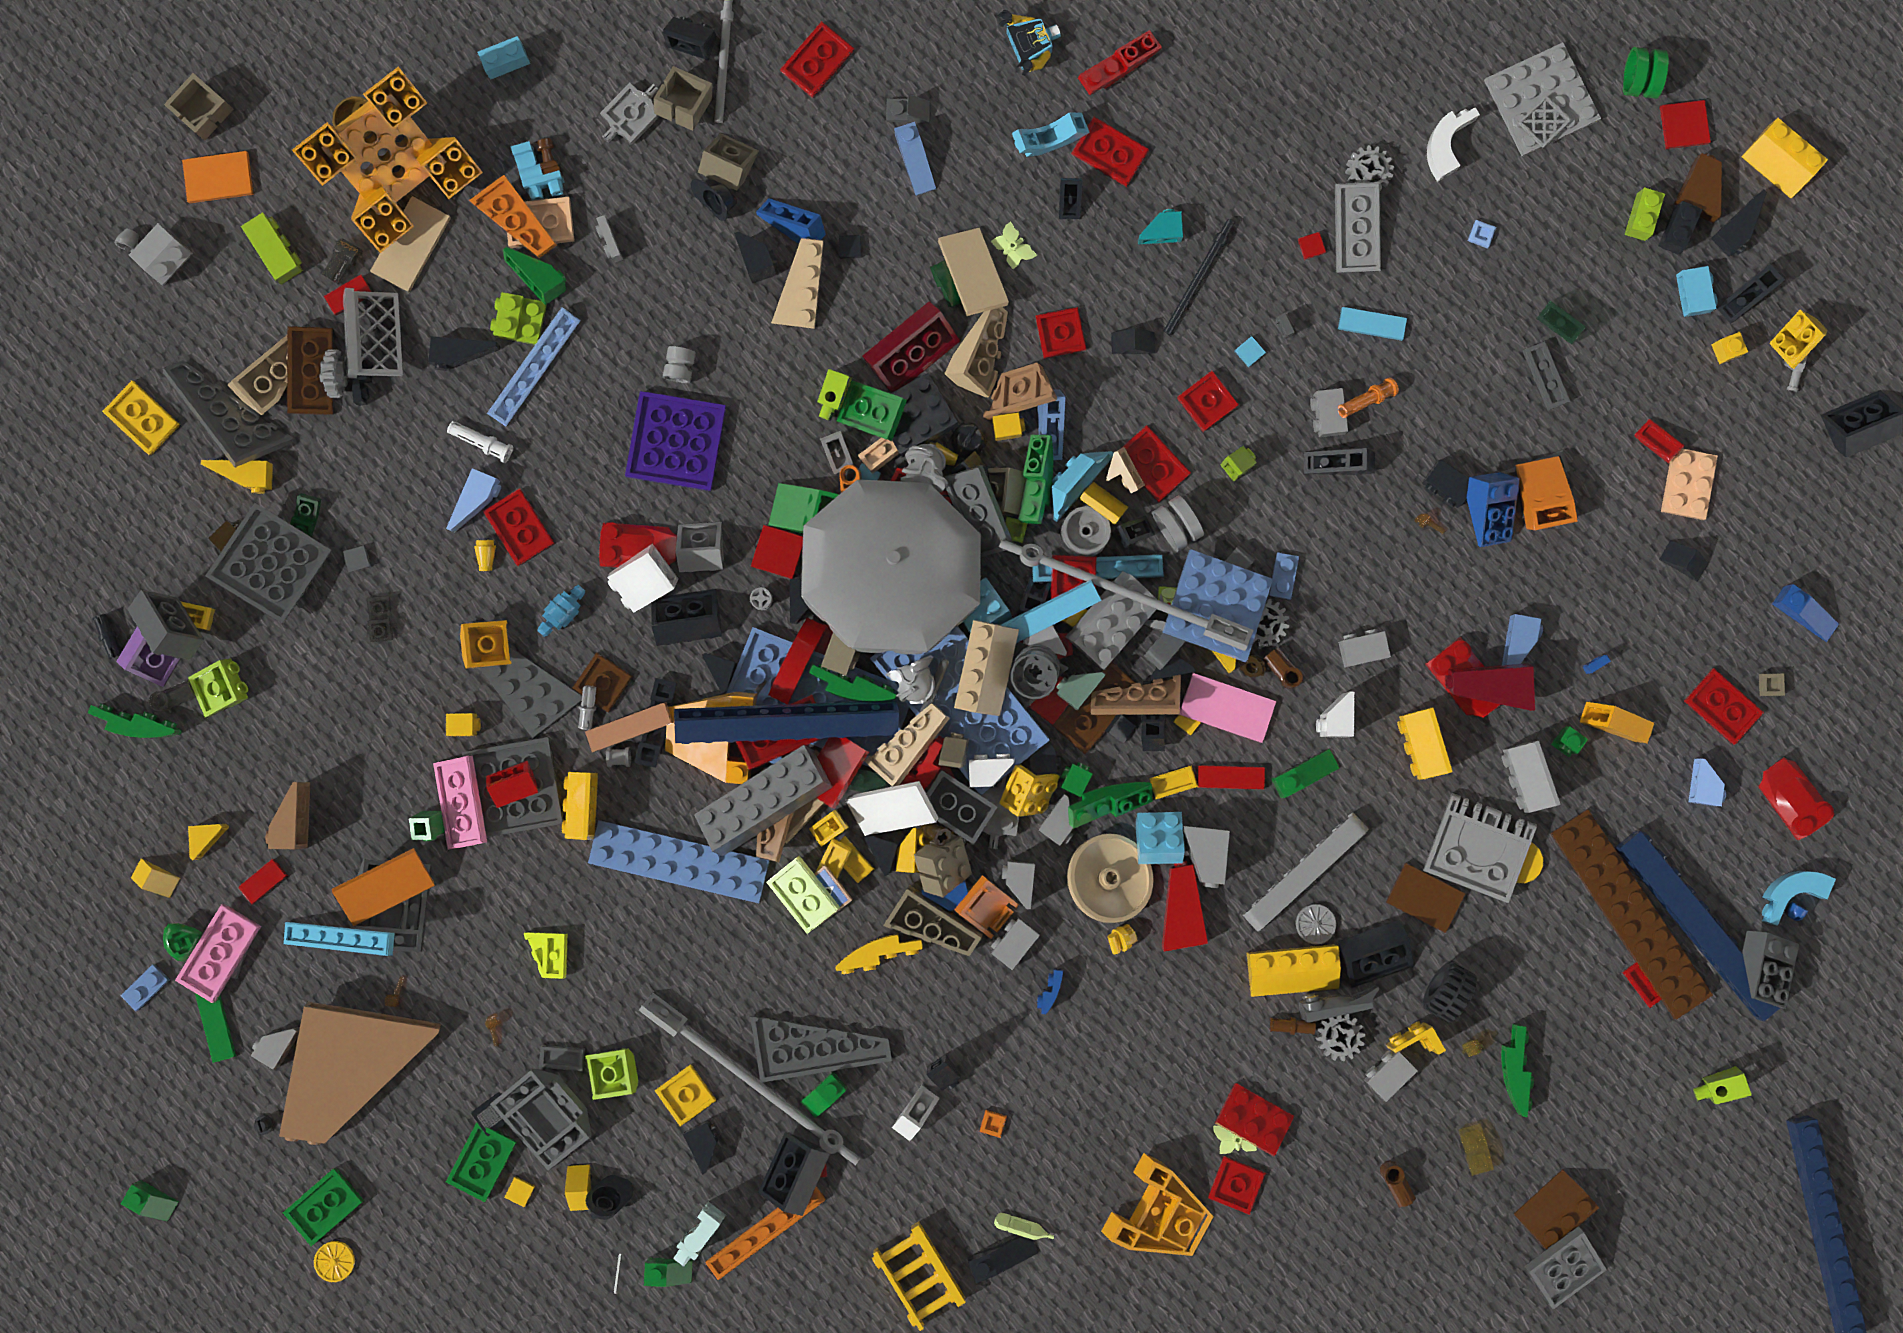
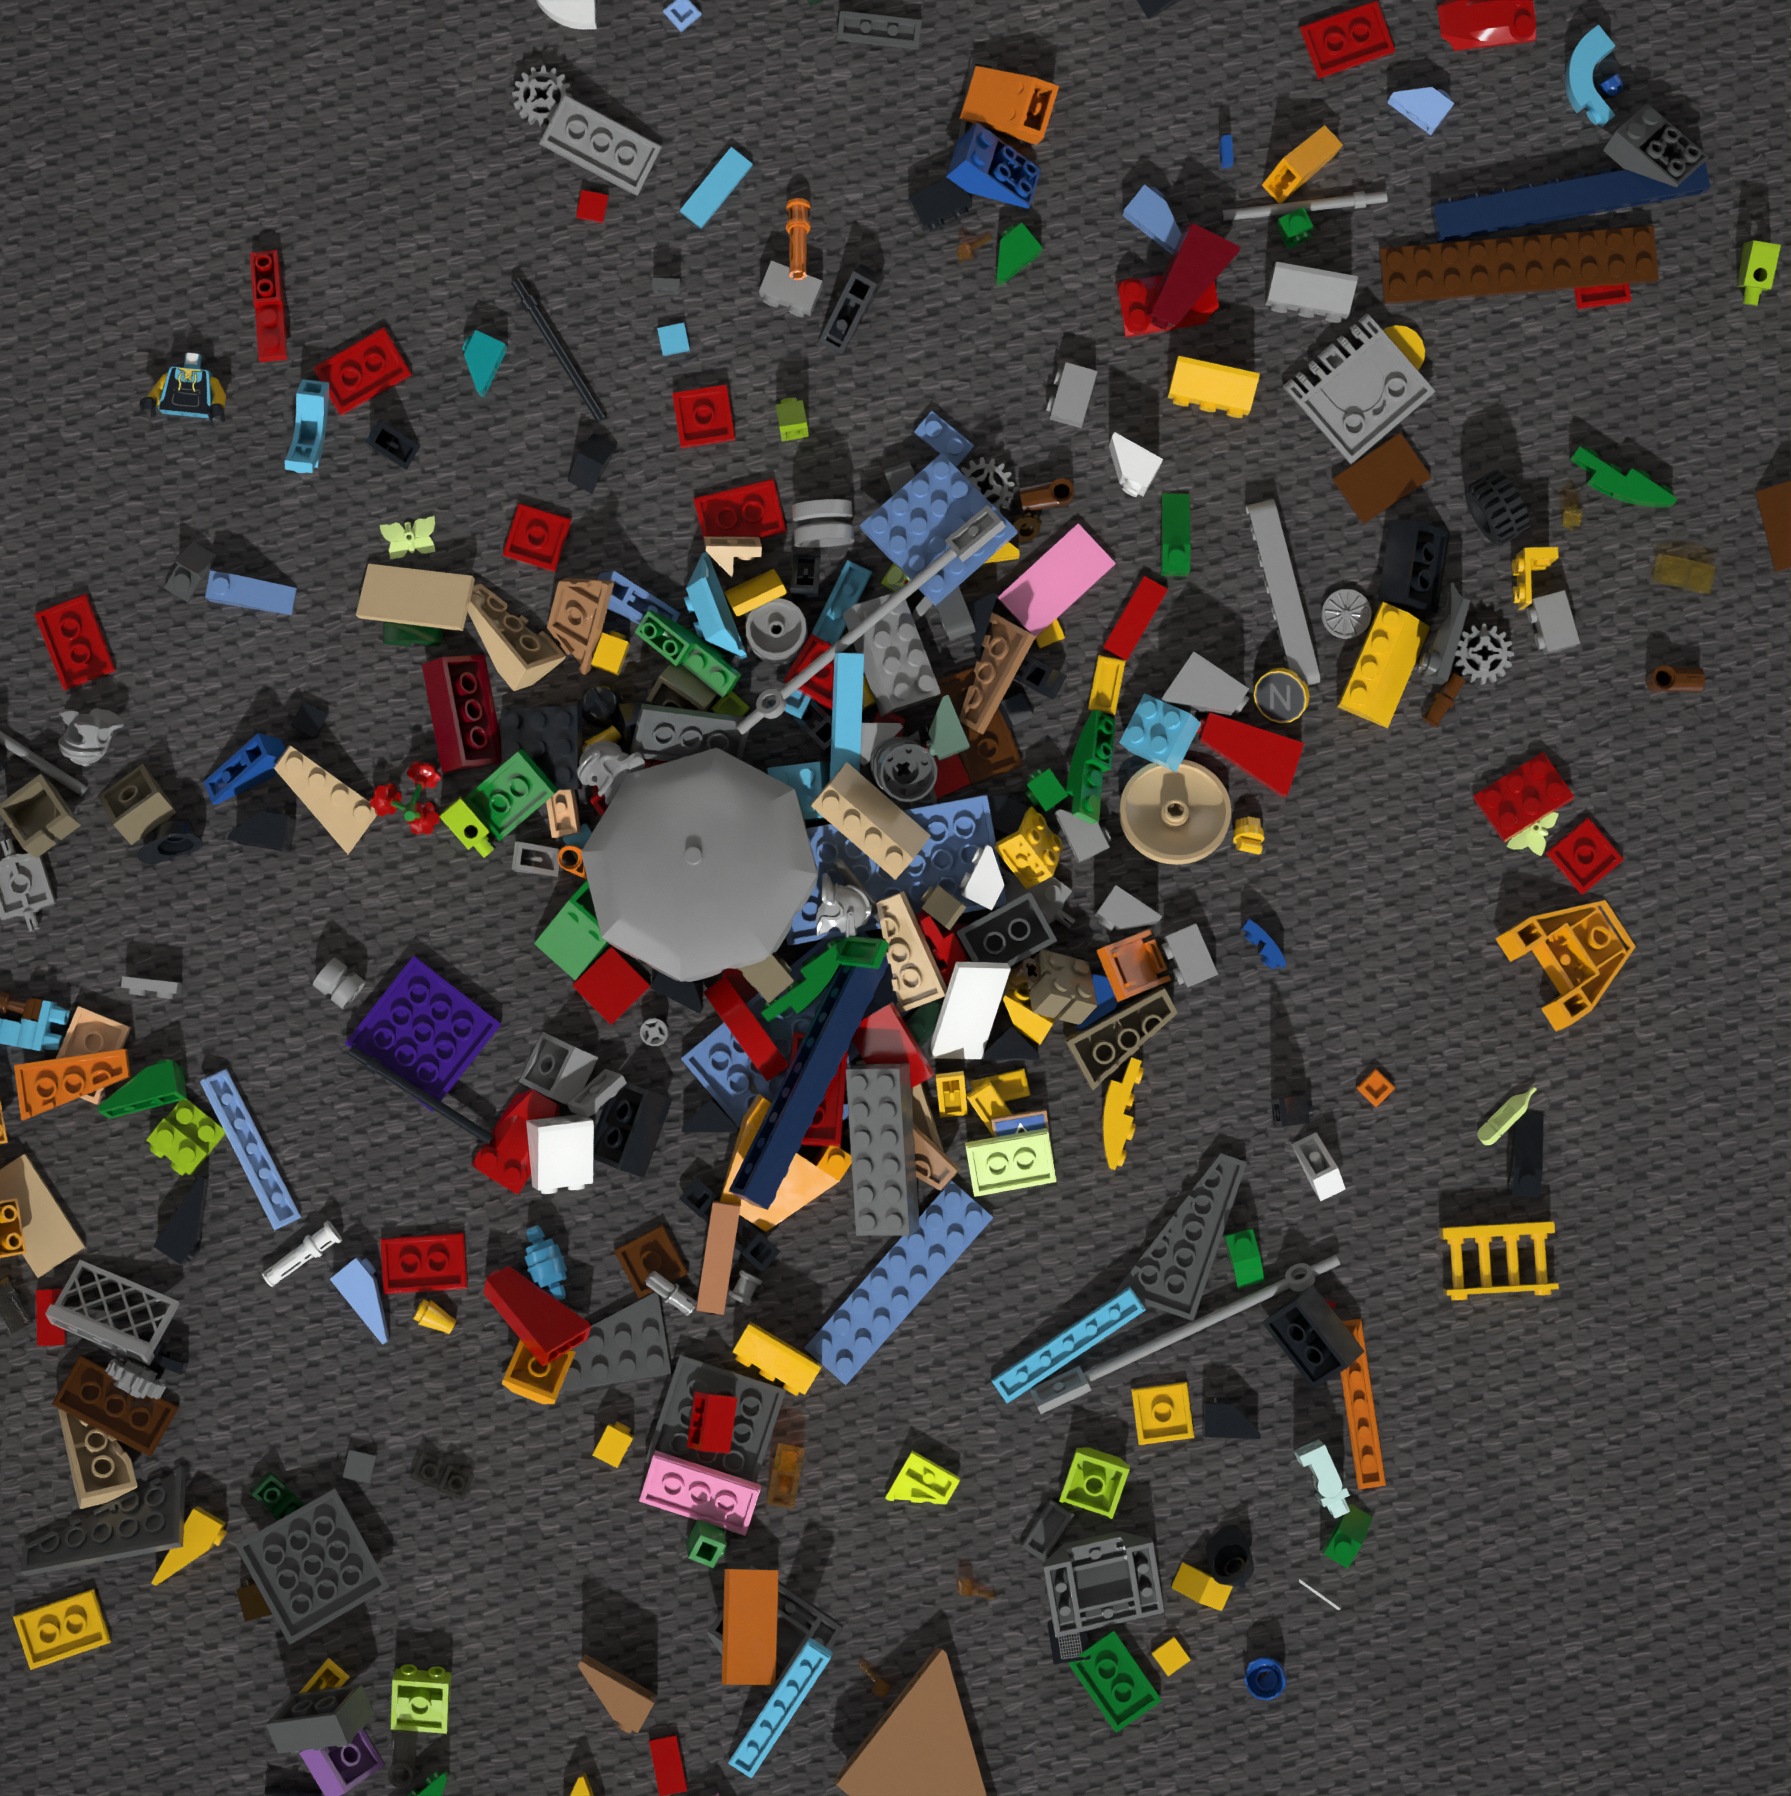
camera: 70 degrees left, 0 degrees up
(503, 855) = (785, 1476): none -> clear orange slope
(520, 623) = (535, 1316): none -> red slope
(536, 1273) = (1272, 1684): none -> blue hair
(635, 419) = (374, 1065): none -> black bar
(697, 581) = (596, 1093): none -> light grey plate
(698, 1003) = (1068, 1344): none -> medium azure tile
(757, 102) = (88, 734): none -> light grey helmet
(824, 355) = (419, 816): none -> red plant
(891, 712) = (862, 952): none -> green tile
(1233, 909) = (1281, 695): none -> black tile
(1443, 555) = (1015, 252): none -> green slope
(1613, 774) = (1358, 200): none -> light grey bar

